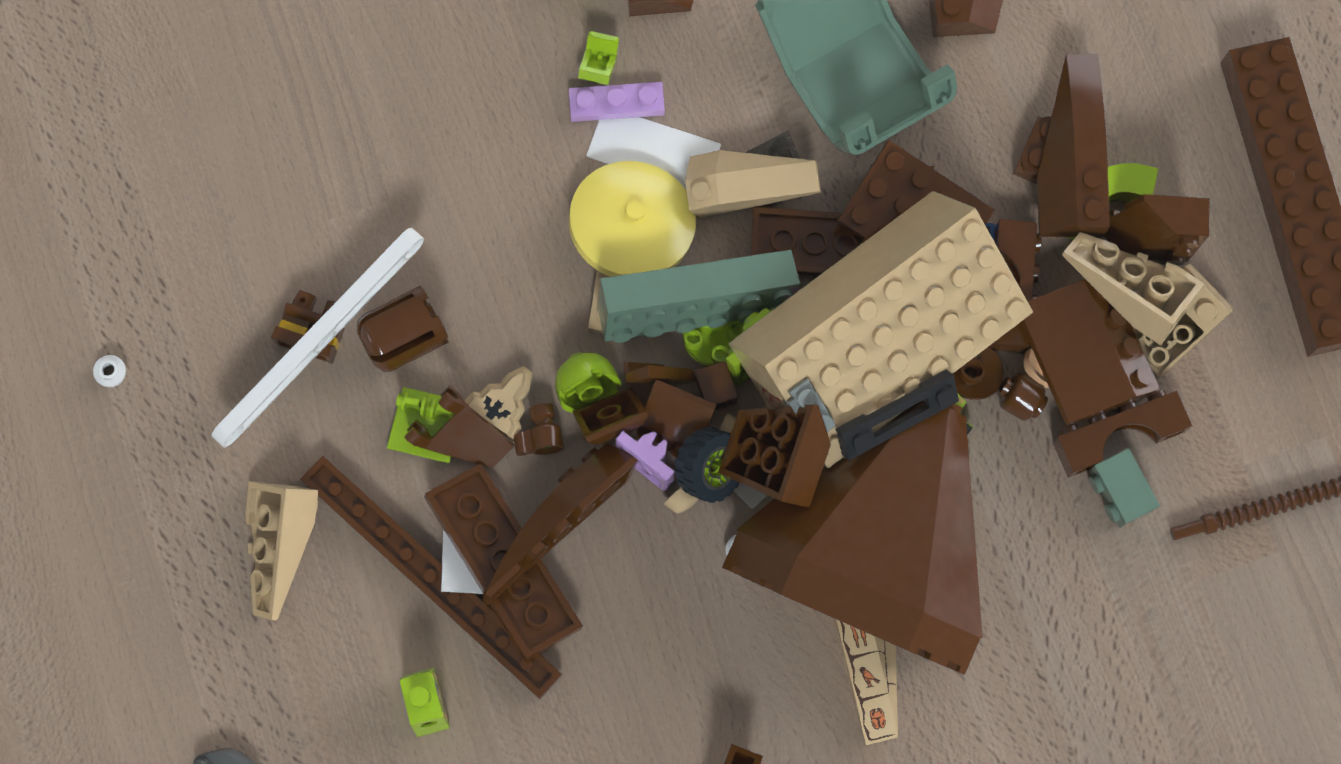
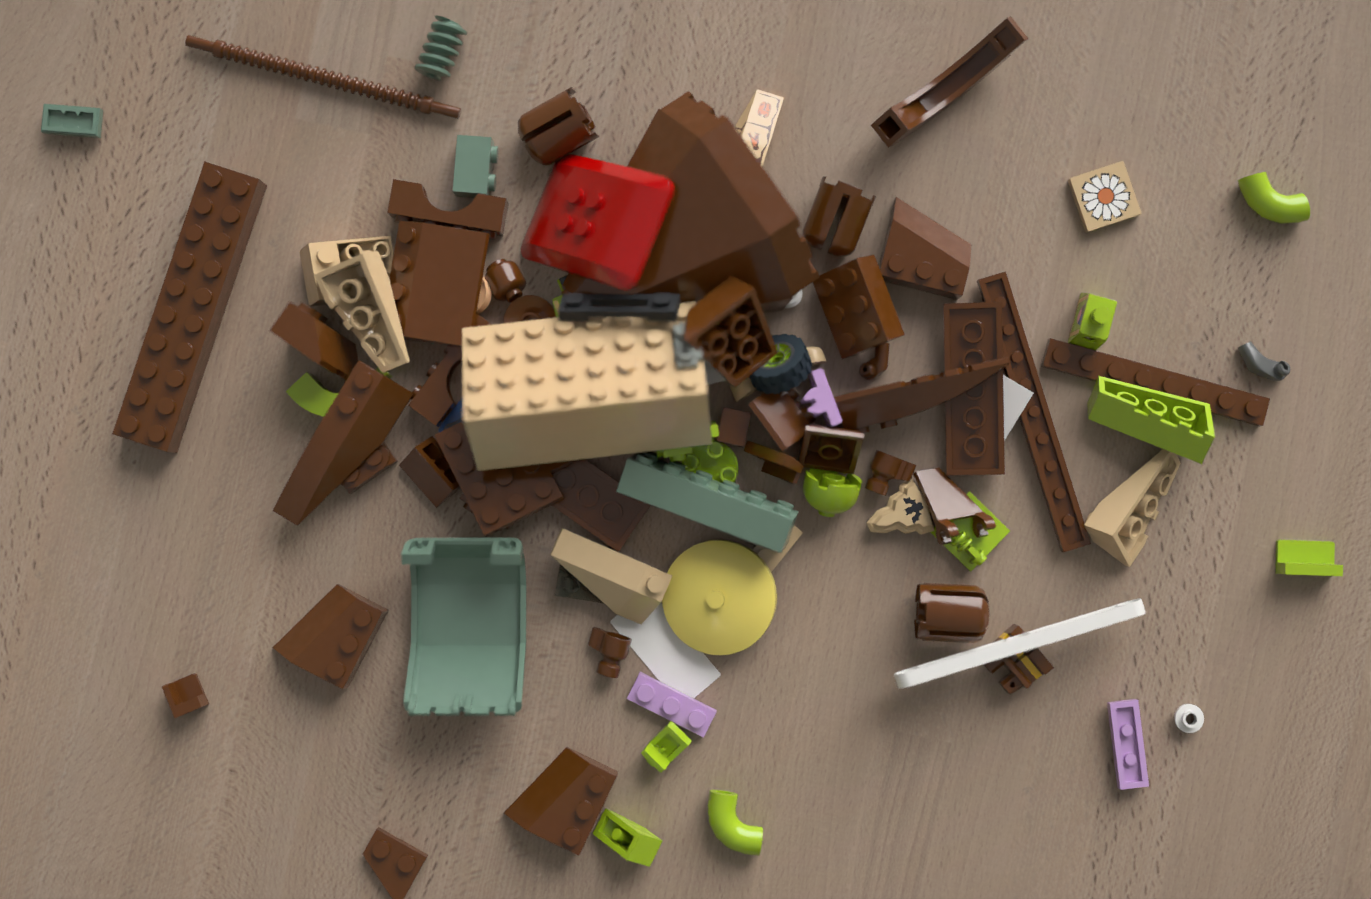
camera: 150 degrees left, 10 degrees up
(73, 592) = (1306, 558): none -> lime panel
(157, 312) = (1127, 744): none -> lavender plate
(307, 636) = (1153, 417): none -> lime wedge
(322, 680) = (1092, 363): none -> reddish brown plate
(496, 21) = (728, 827): none -> lime cylinder
(611, 533) = (876, 365): none -> reddish brown arm
(632, 669) = (924, 254): none -> reddish brown wedge
(665, 570) = (858, 306): none -> reddish brown brick
(703, 119) = (613, 648): none -> reddish brown piece
(723, 651) = (850, 223): none -> reddish brown cylinder
(972, 492) = (597, 220): none -> red wedge
(977, 177) = (430, 471): none -> reddish brown brick
(1053, 566) = (556, 128): none -> reddish brown cylinder
(1231, 584) = (440, 48): none -> sand green piece

